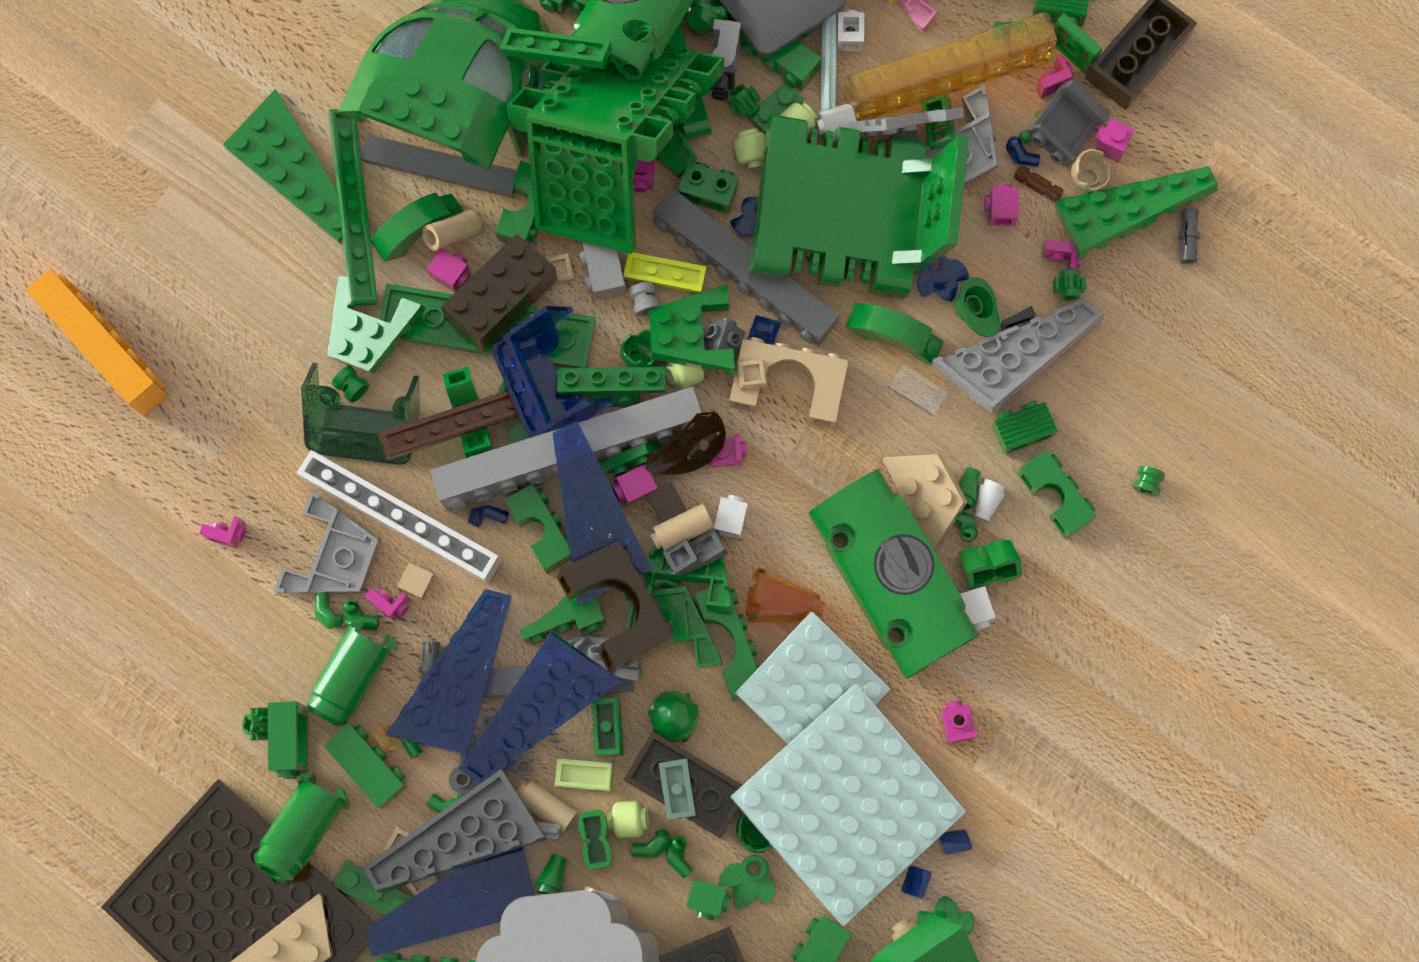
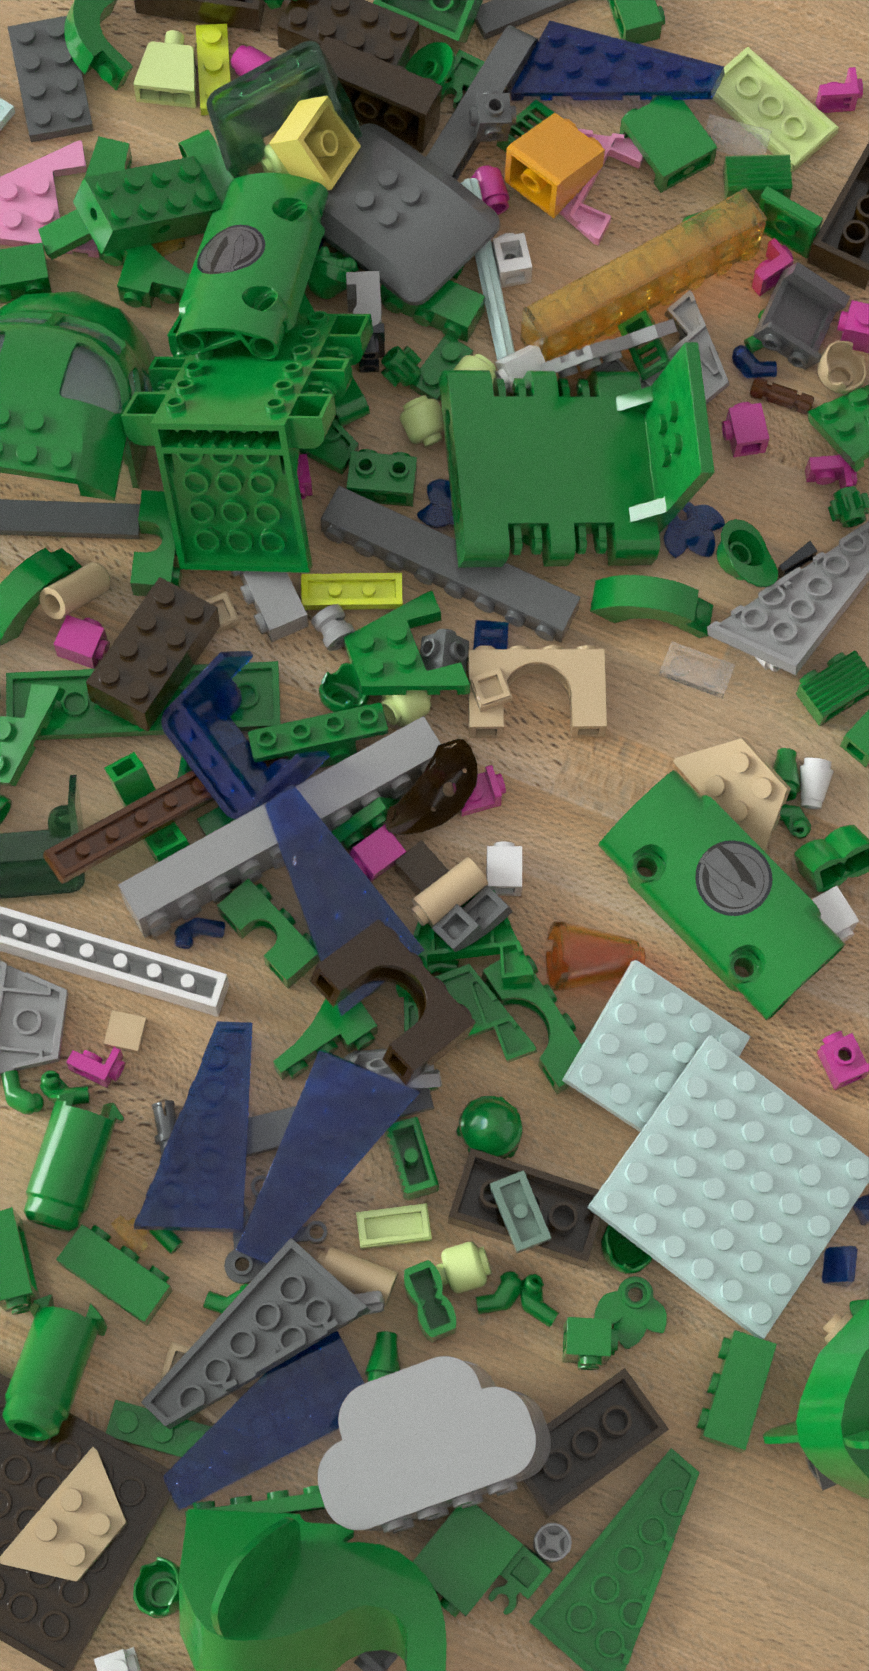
camera: 20 degrees left, 5 degrees down
(556, 48) = (167, 336): green plate -> none

